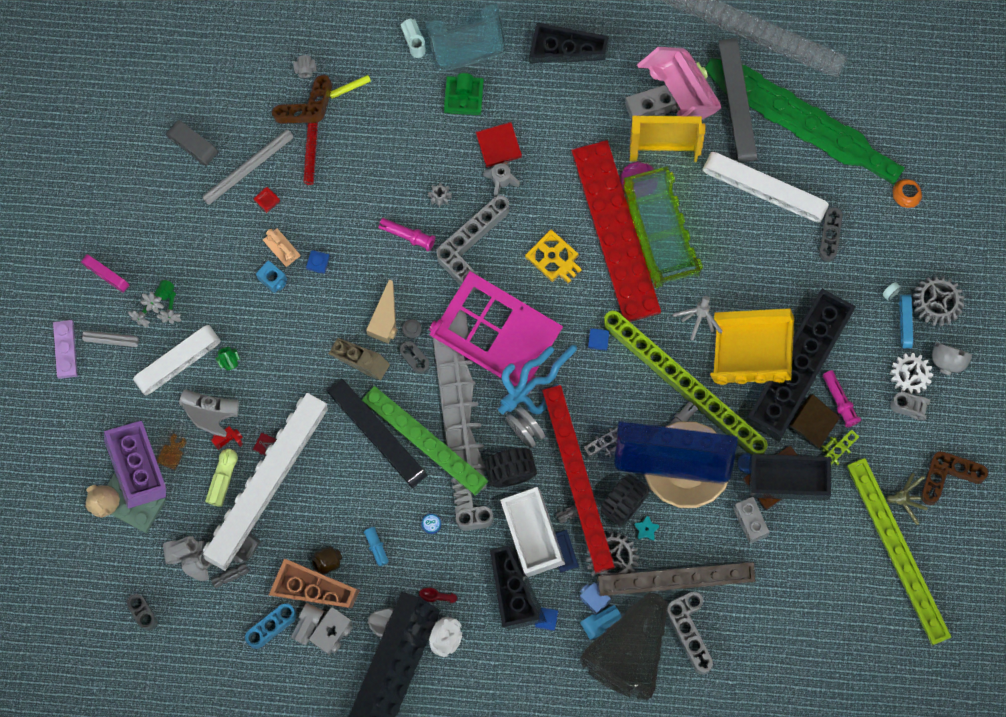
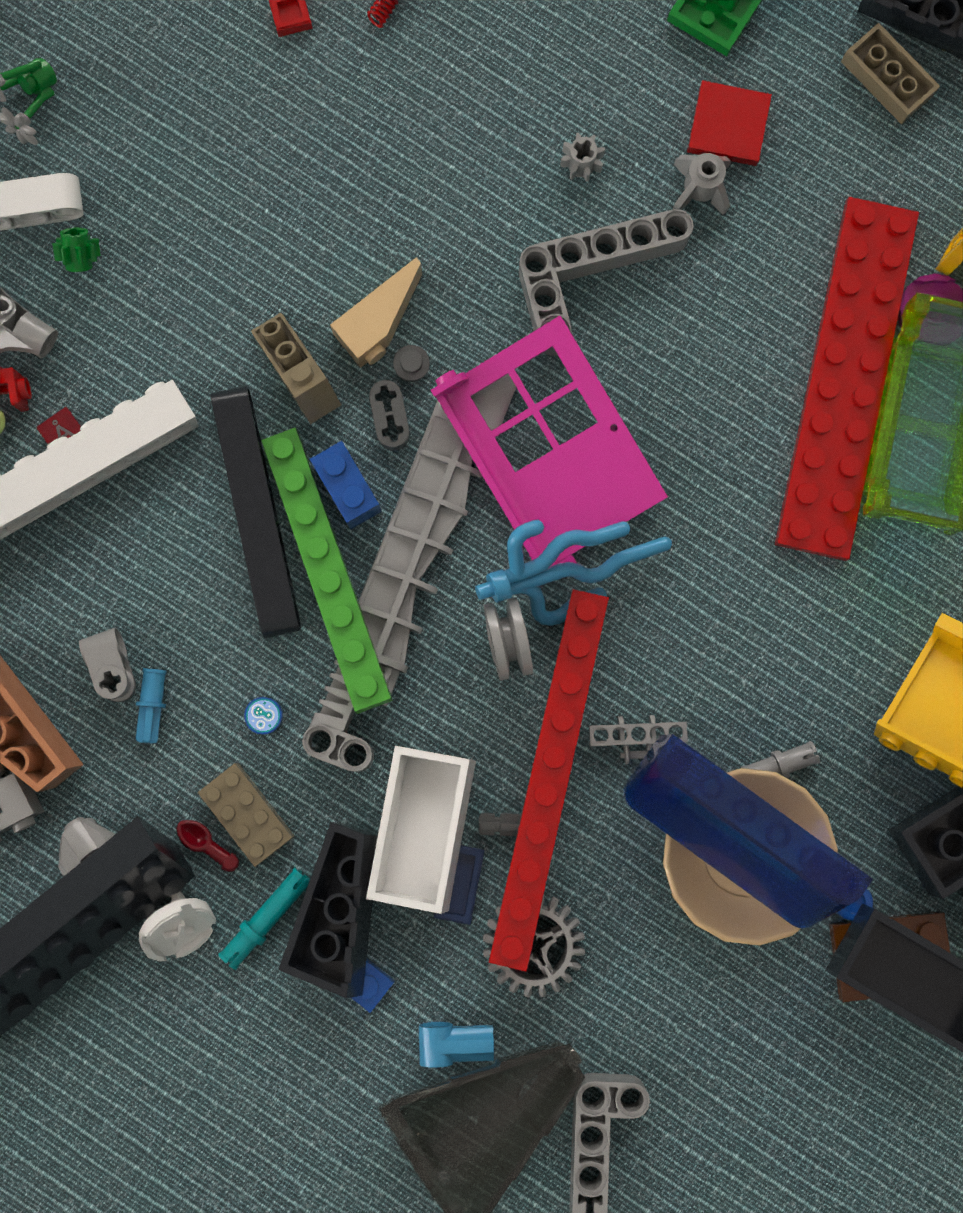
camera: 20 degrees right, 10 degrees up
(268, 270) = (221, 135): dark azure brick -> none
(281, 247) = (269, 106): light nougat hinge -> none
(318, 262) = (317, 165): blue plate -> none
(326, 559) = (54, 684): dark brown head -> none
(345, 536) = (107, 658): none -> light grey piece
(412, 399) = (346, 485): none -> blue brick
(415, 236) = (501, 207): dark pink pin -> none
(448, 572) = (246, 814): none -> dark tan piece
(483, 613) = (255, 929): none -> teal pin
(510, 467) = (444, 697): black tyre -> none
(560, 85) = (890, 73): none -> dark tan piece
(564, 267) = (726, 394): yellow piece -> none
(592, 599) = (466, 996): medium blue brick -> none
(598, 339) = (716, 550): blue tile -> none
(625, 499) = (609, 861): black tyre -> none
(646, 534) = (612, 915): teal plate -> none
(676, 578) = (621, 1044): dark brown plate -> none
(679, 375) = (835, 721): lime beam -> none
(701, 310) = (922, 600): light grey plant -> none
(751, 520) = (806, 1010): light grey brick -> none

